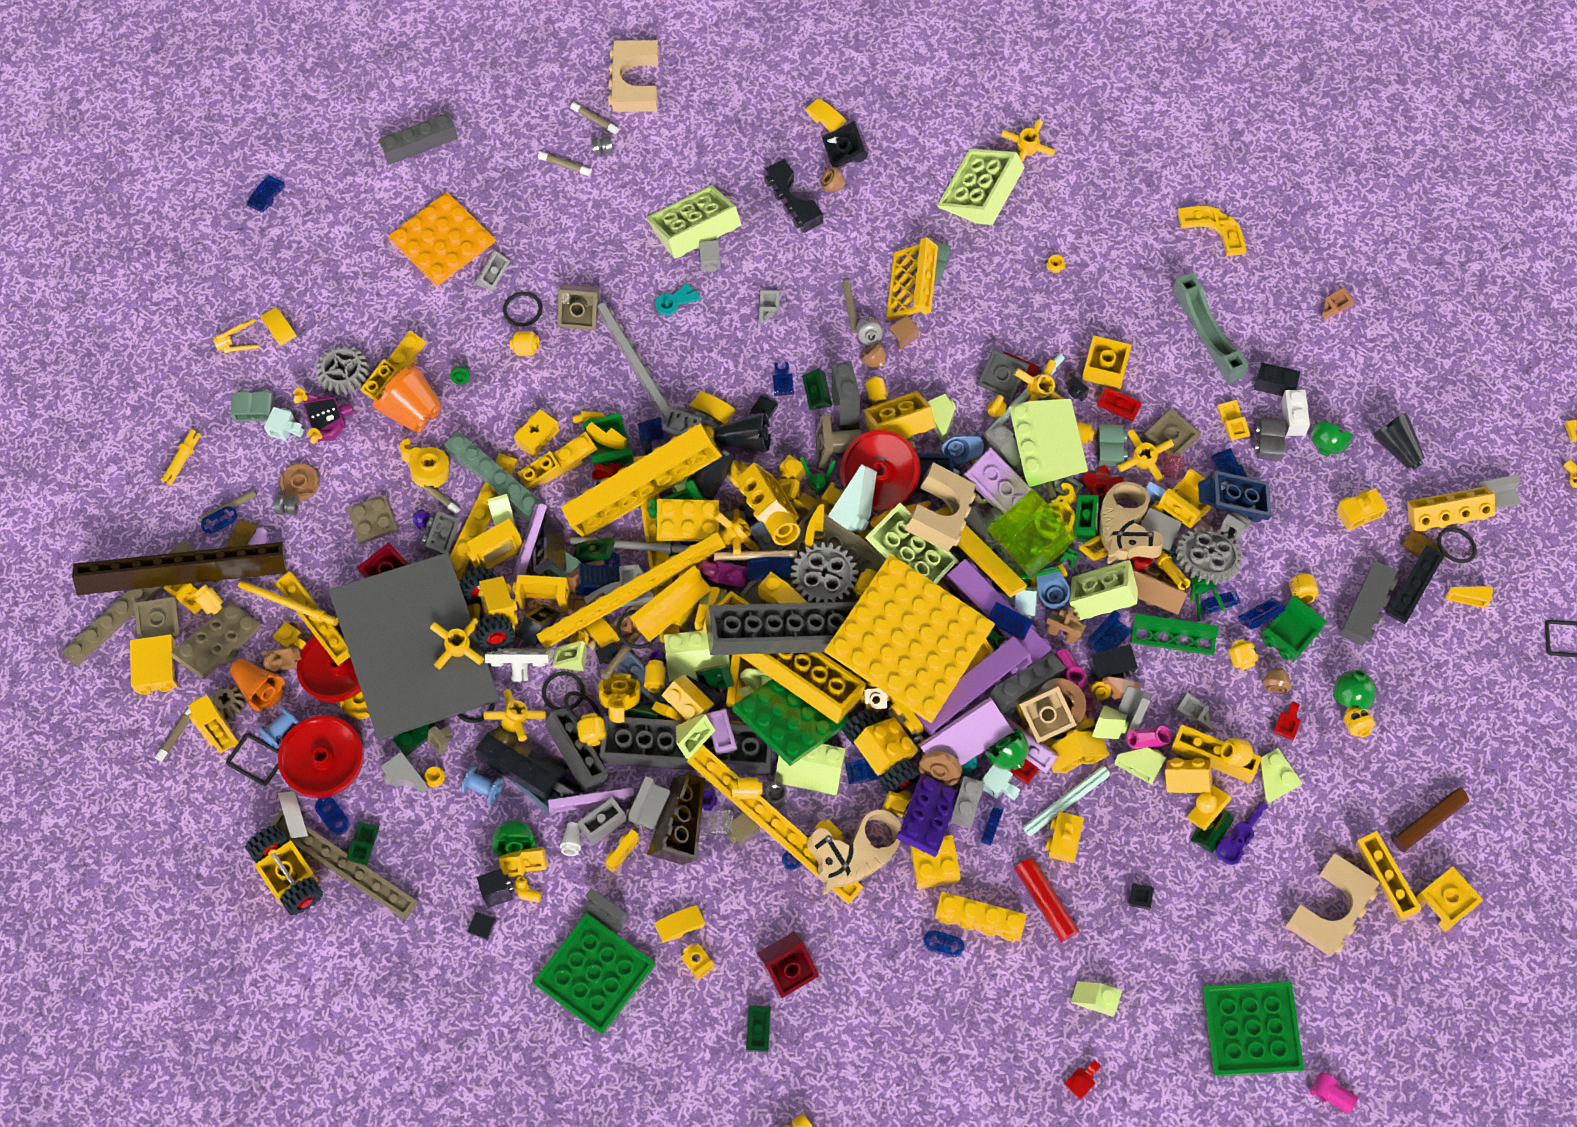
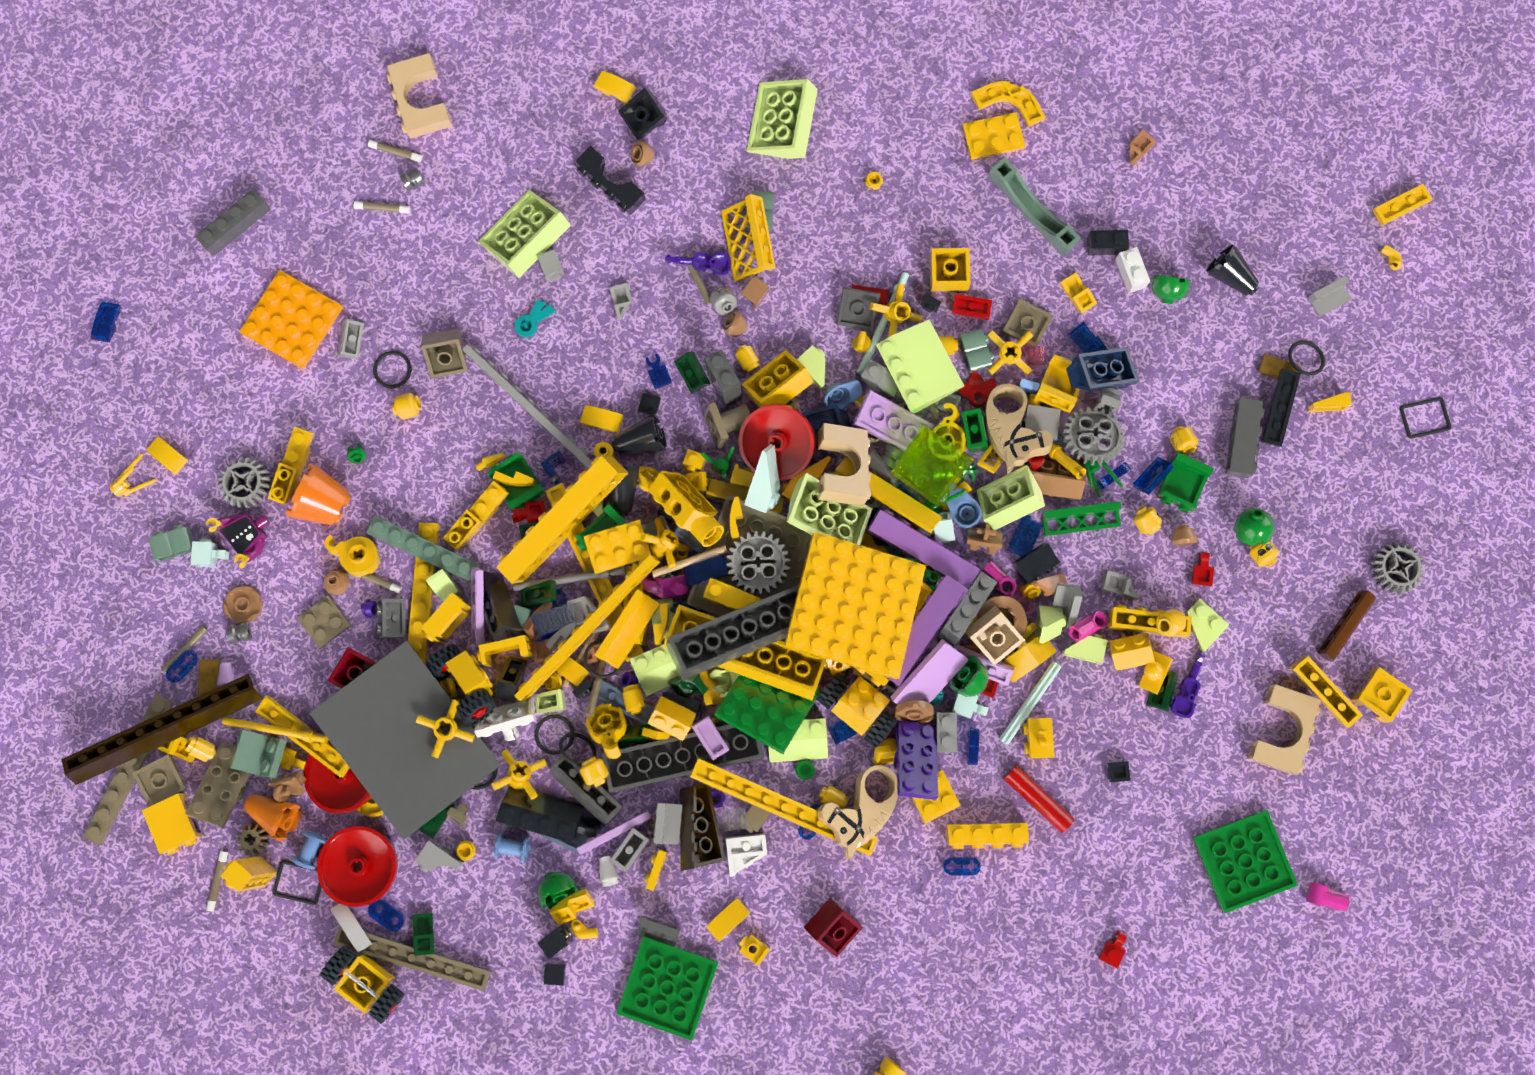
camera: 15 degrees left, 15 degrees up
(181, 456) = (123, 614): yellow pin -> none
(262, 620) = (258, 754): none -> sand green bracket
(397, 485) = (338, 585): none -> medium nougat cone
(536, 433) = (447, 503): yellow brick -> none
(680, 419) = (584, 445): flat silver bracket -> none
(693, 734) = (687, 753): yellowish green slope -> none
(719, 861) = (744, 851): none -> white wing
(745, 788) = (750, 788): yellow brick -> none
(758, 1029) = (825, 992): dark green plate -> none
(778, 791) = (775, 776): flat silver wheel -> none
(808, 799) = (805, 769): none -> green tile
(863, 582) = (797, 560): yellow brick -> none
(875, 297) = (718, 263): none -> dark purple piece
(1010, 621) = (937, 557): clear blue plate -> none
(1029, 141) = (807, 62): yellow bar -> none
(1097, 997) = (1106, 875): yellowish green slope -> none
(1189, 255) = (993, 136): none -> yellow plate
(1270, 439) = (1117, 302): flat silver brick -> none
(1361, 509) = (1215, 348): yellow brick -> none
(1451, 508) = (1294, 325): yellow brick -> none
(1500, 761) = (1390, 551): none -> light grey gear

